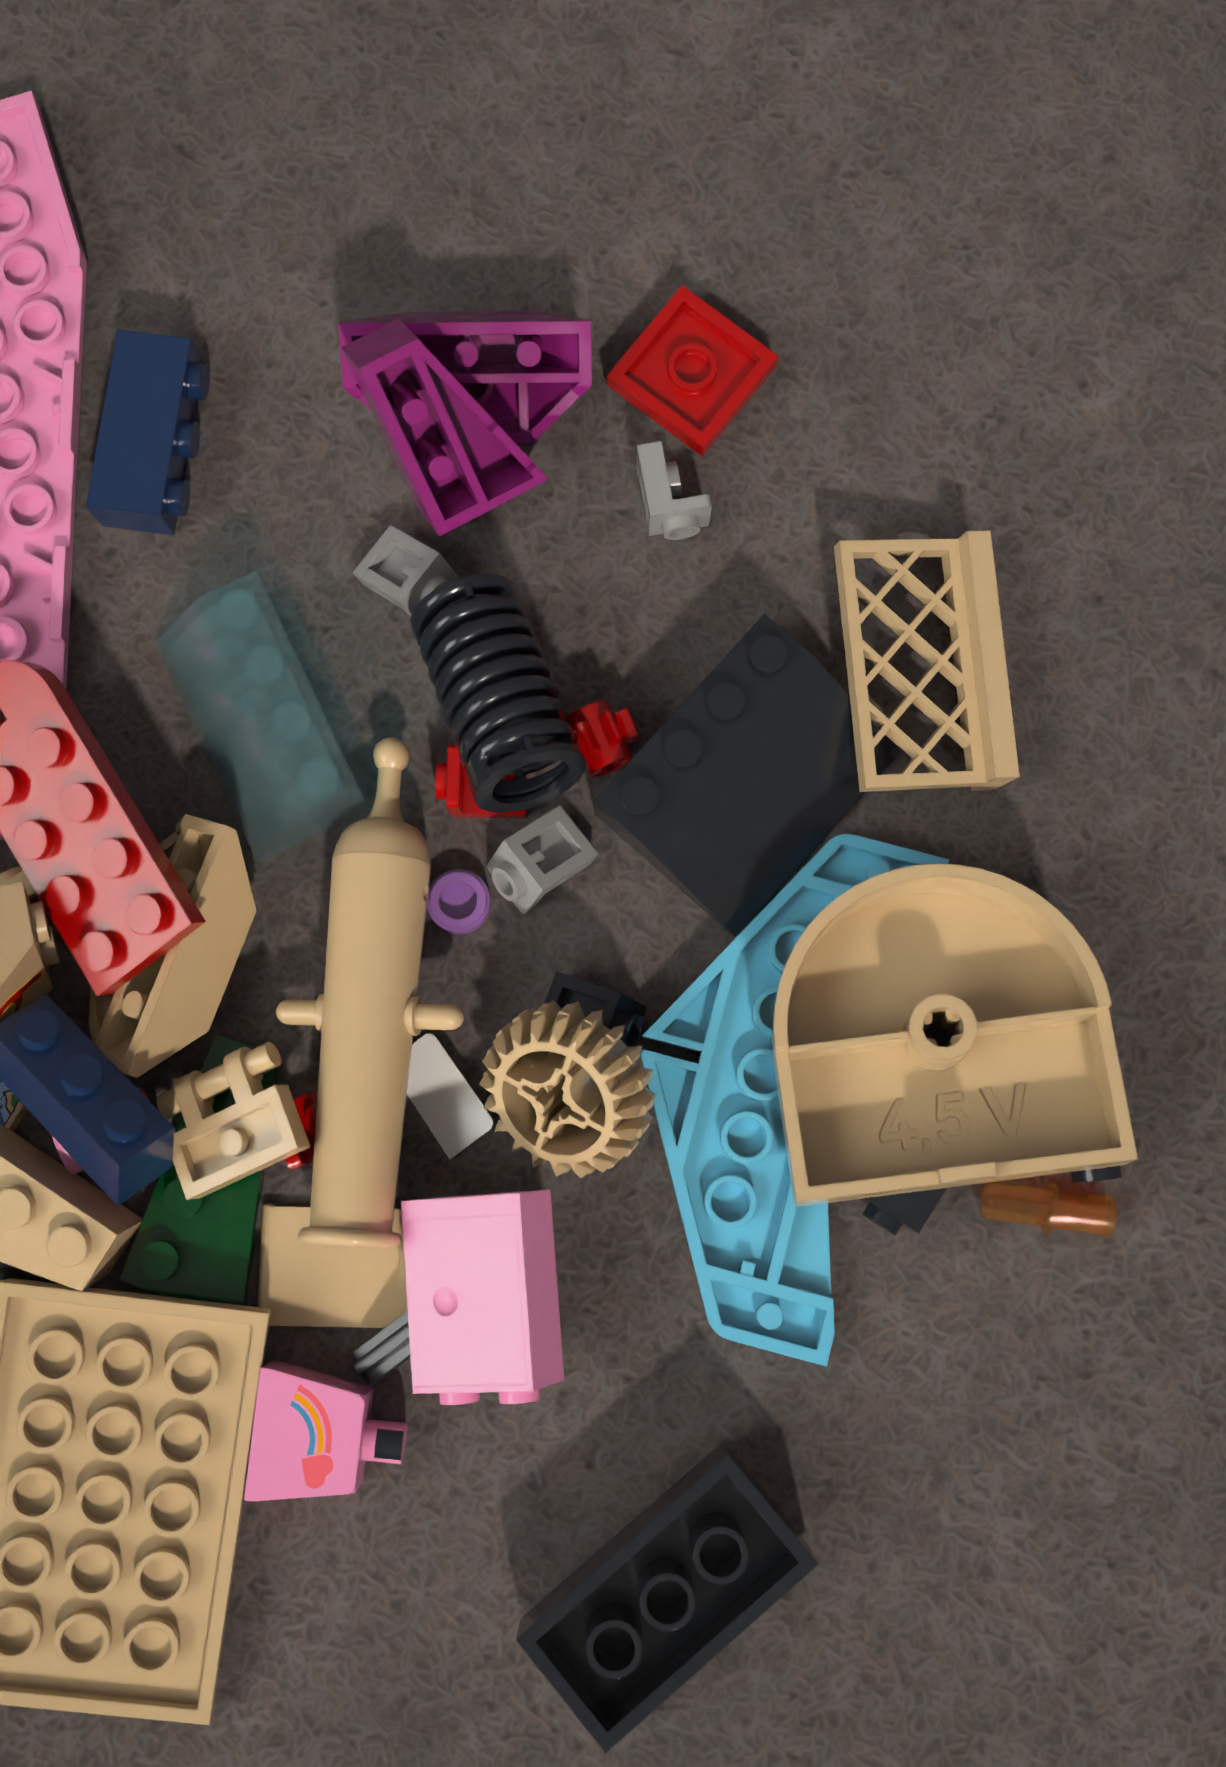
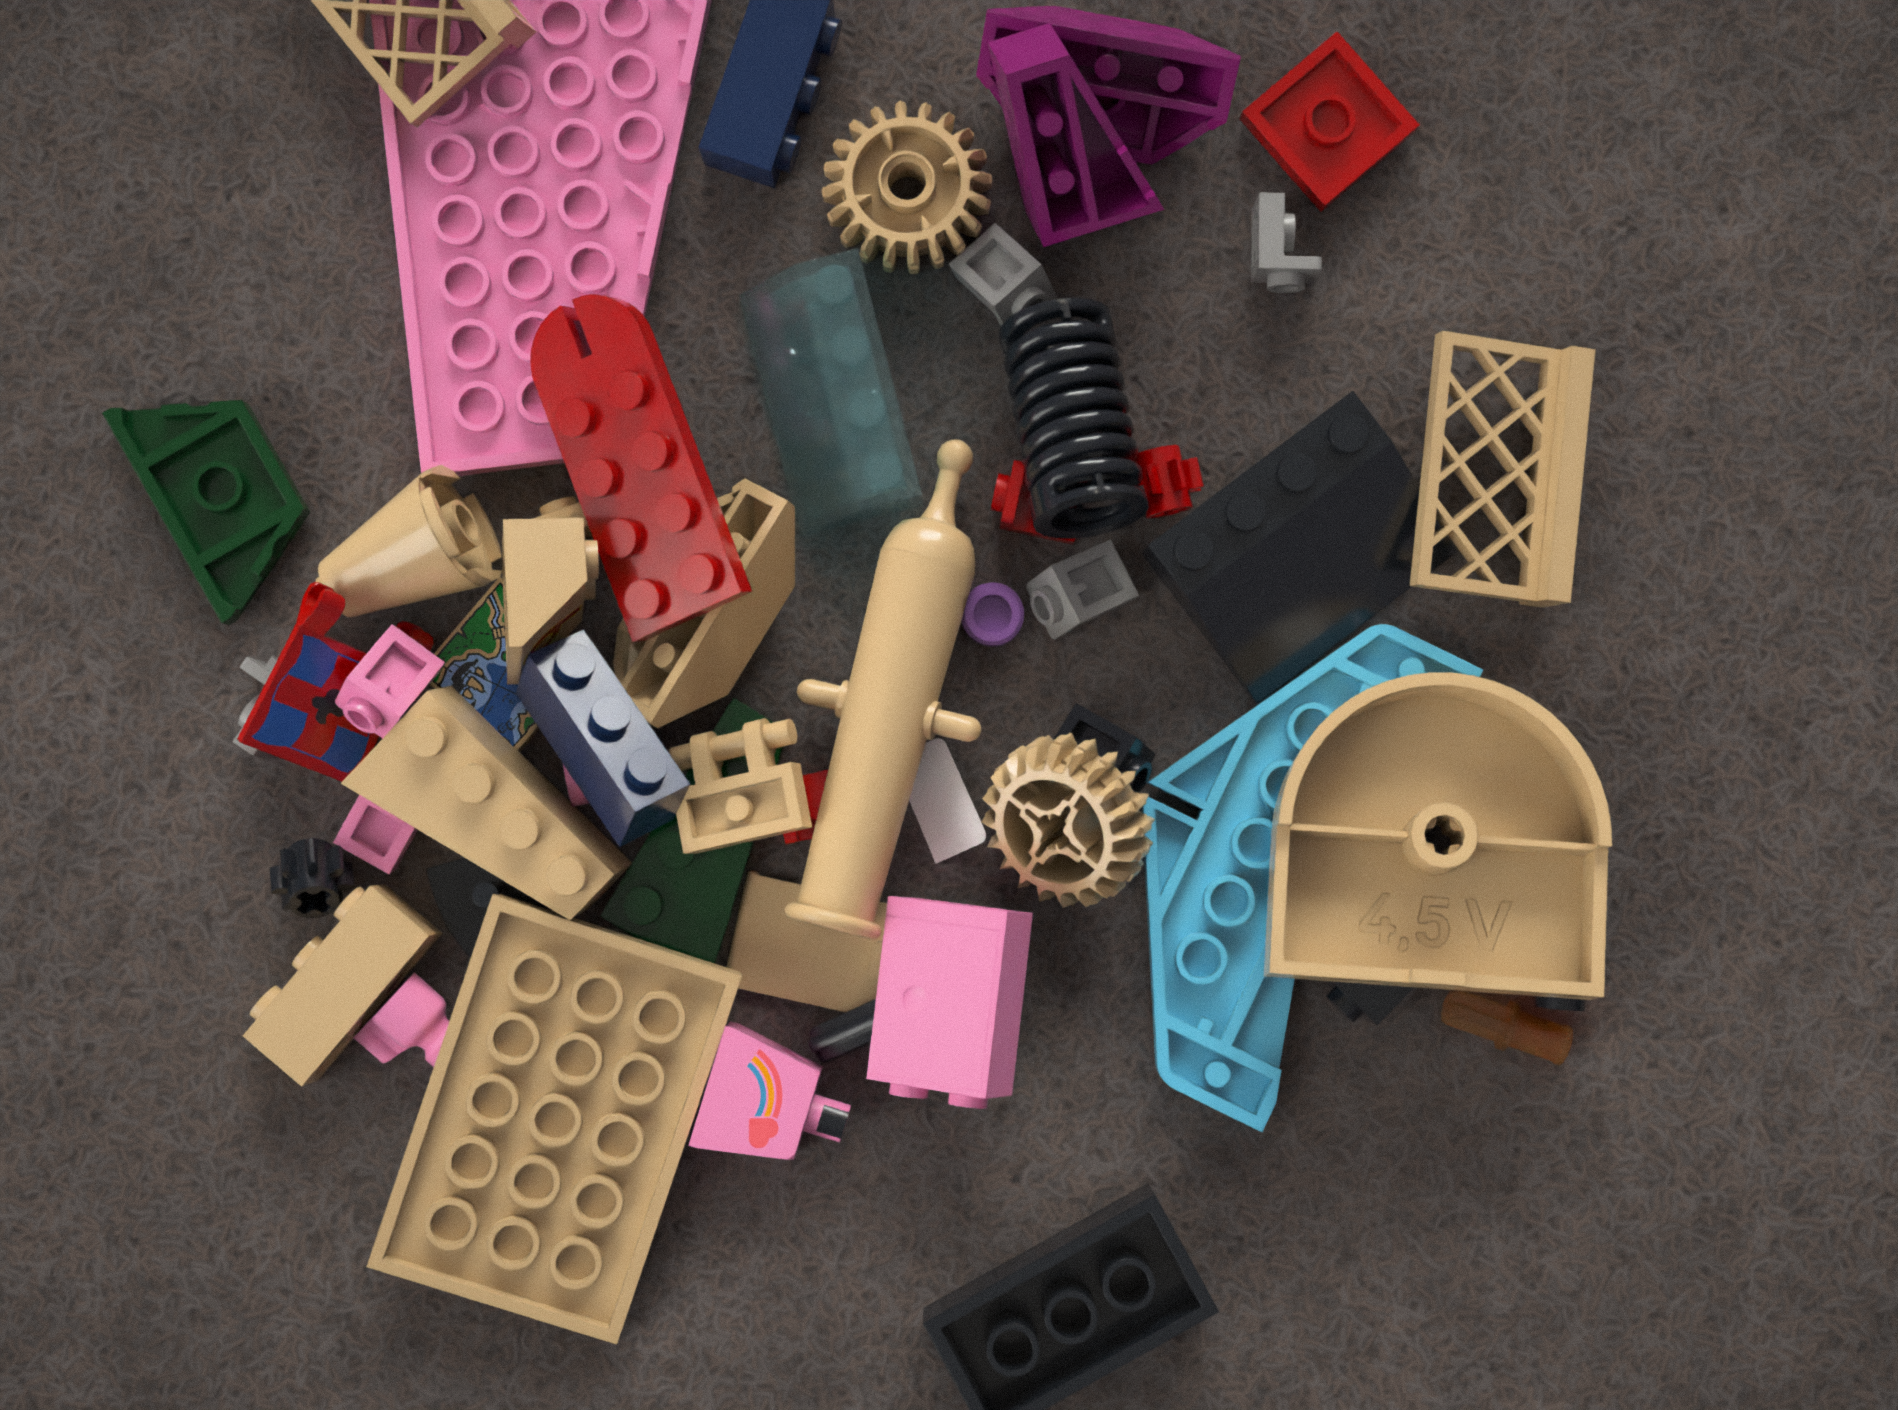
camera: 10 degrees right, 5 degrees up
(293, 472) = (899, 150): none -> tan gear

